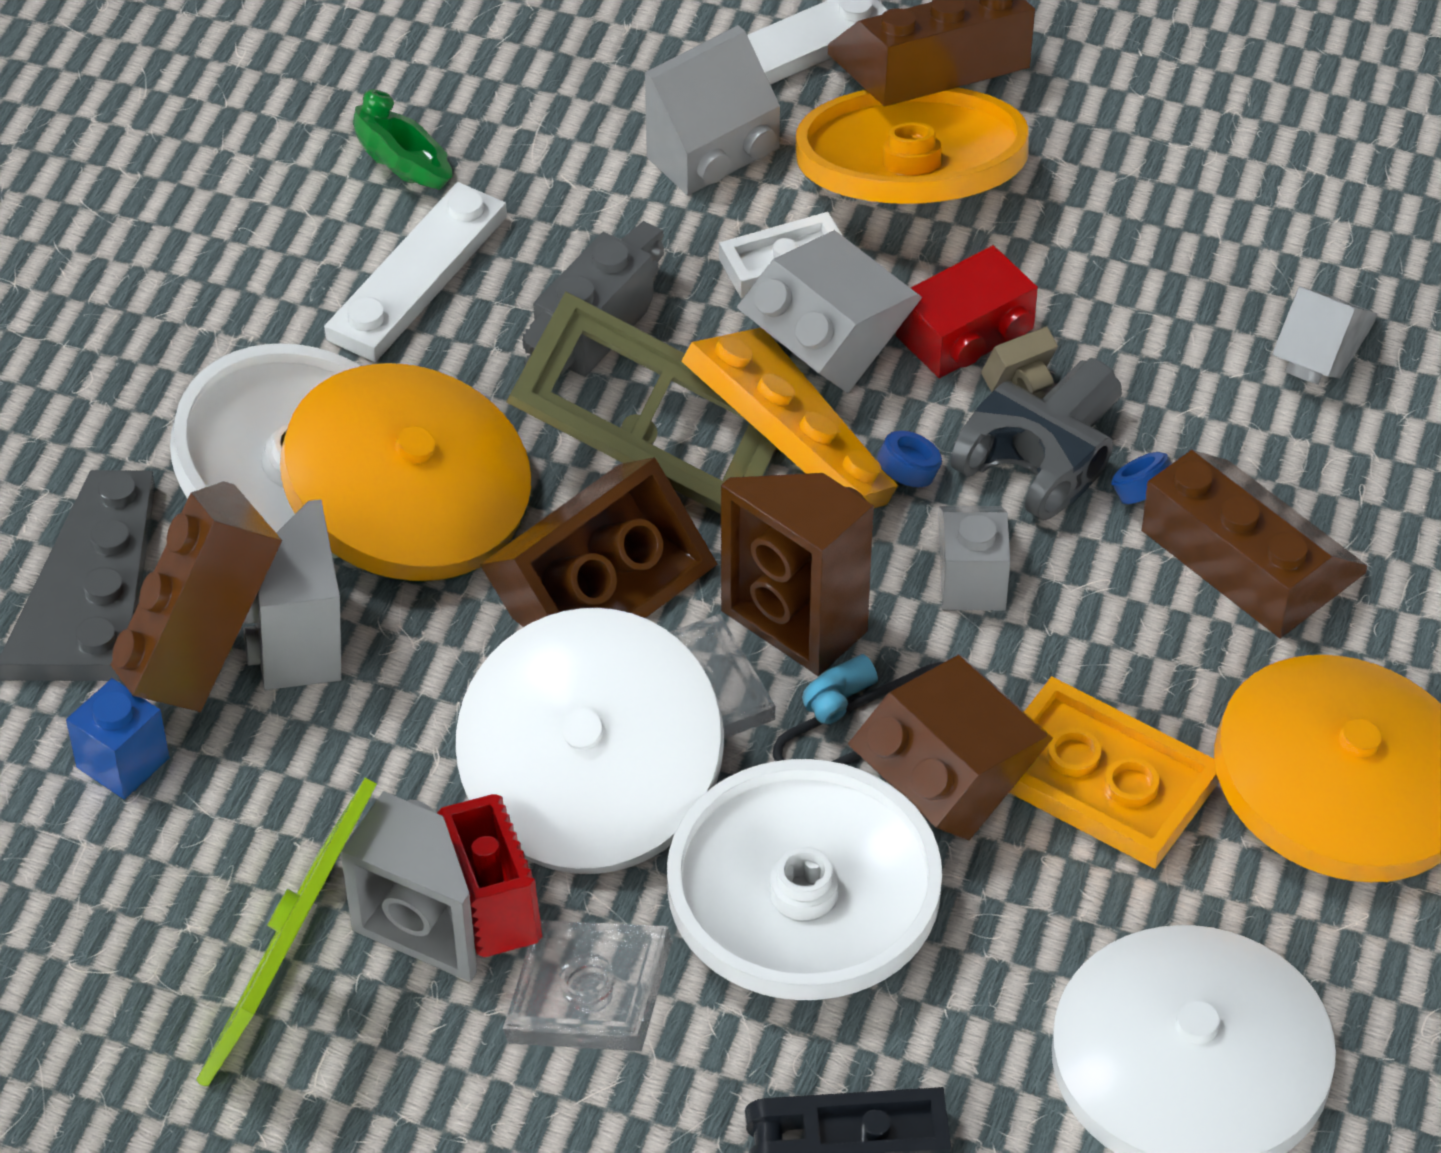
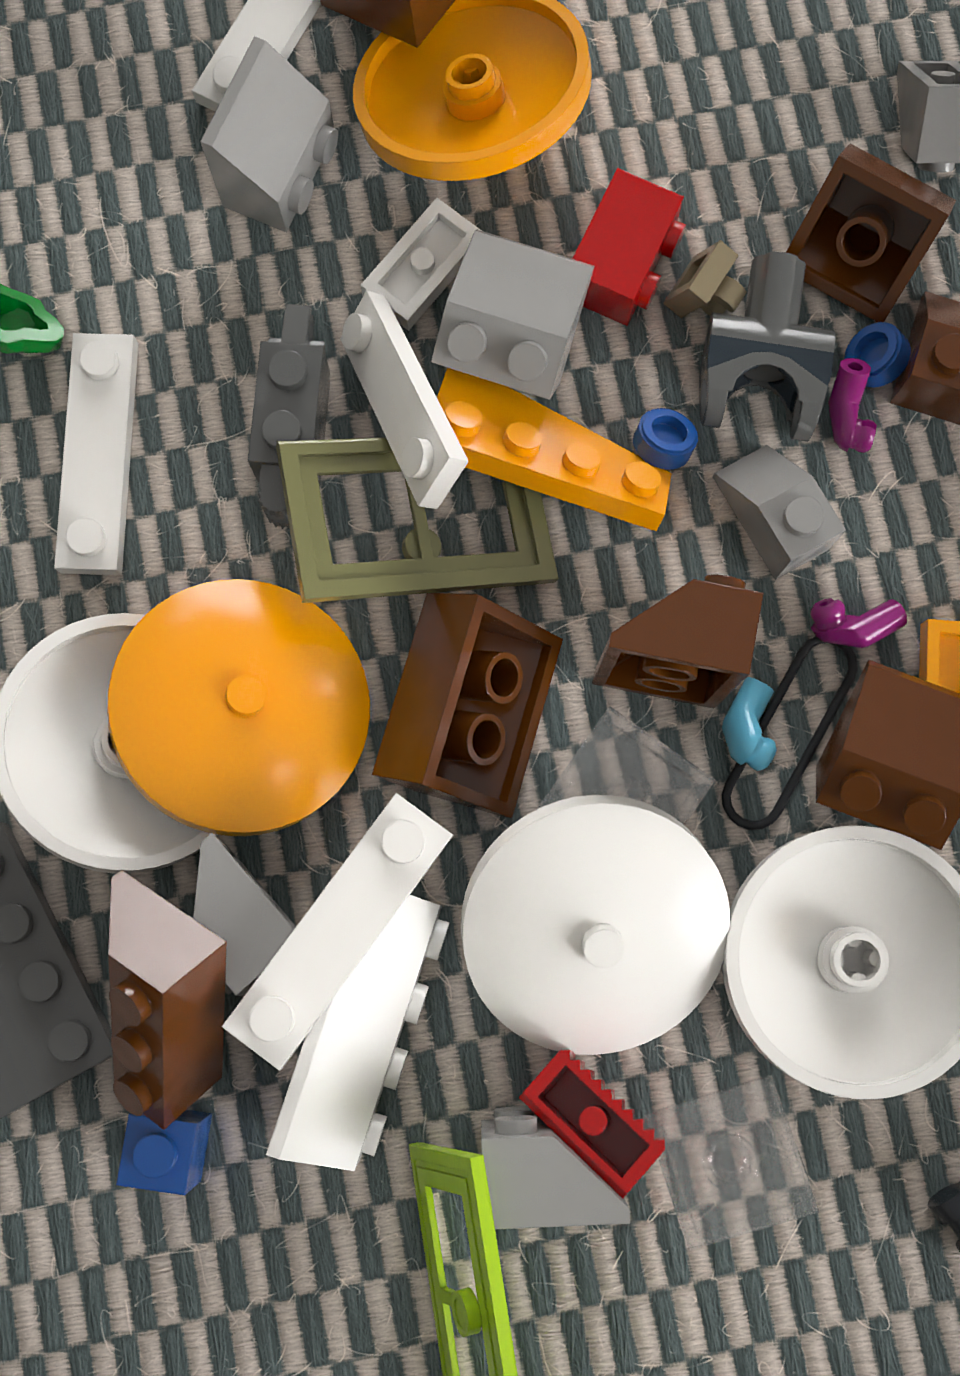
camera: 30 degrees left, 30 degrees up
(337, 715) = (354, 1047): none -> white slope
(373, 596) = (337, 932): none -> white plate
(690, 313) = (403, 401): none -> white plate
(998, 667) = (860, 631): none -> magenta arm
(1084, 521) = (844, 407): none -> magenta arm
(1197, 386) = (868, 232): none -> reddish brown slope

